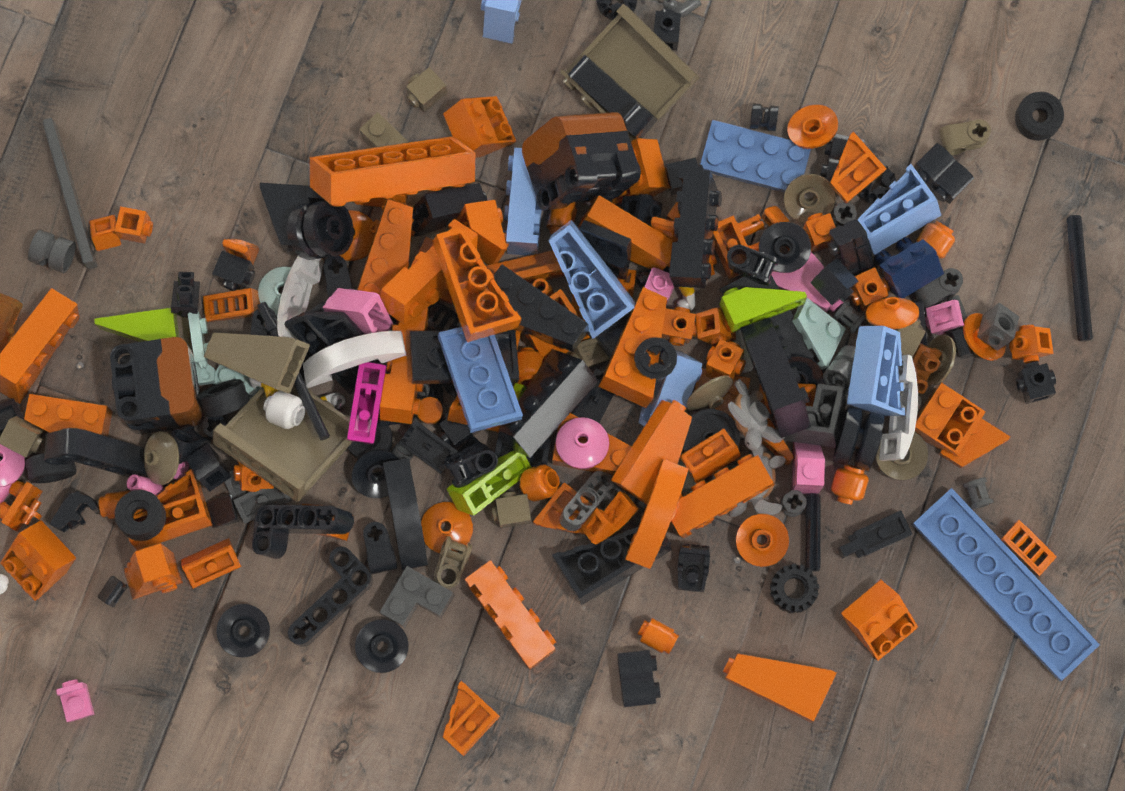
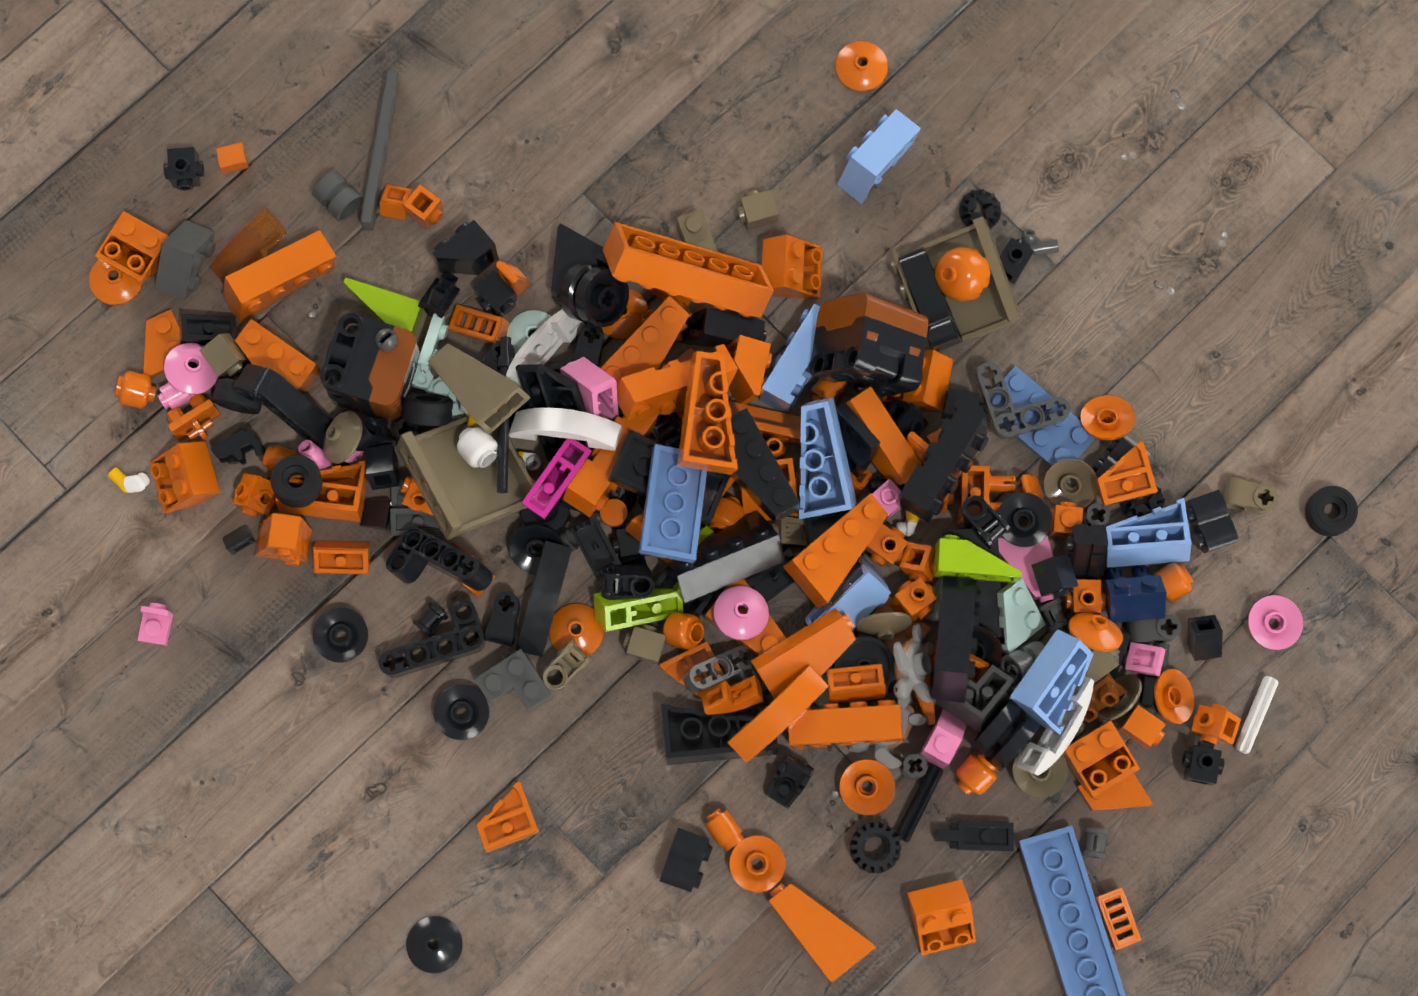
camera: 20 degrees right, 0 degrees up
(108, 546) = (254, 495): none -> orange brick
(165, 356) = (390, 344): none -> dark grey hinge
(190, 246) = (466, 252): none -> black slope
(315, 579) = (430, 619): none -> black bush
(510, 615) = (595, 741): orange wedge -> none
(630, 61) = (962, 274): none -> orange cylinder
(655, 347) = (854, 555): black gear -> none
(710, 641) = (772, 863): none -> orange dish
(725, 161) = (1008, 412): none -> dark grey beam
(769, 120) = (1070, 390): black wheel -> none
(970, 376) = (1142, 727): none -> orange brick
(986, 274) = (1205, 637): none -> black brick
(998, 326) = (1192, 693): dark grey brick -> none
(1045, 223) = (1288, 621): none -> bright pink dish
(1060, 319) = (1256, 714): none -> white axle
(1079, 278) = (1294, 684): black axle -> none

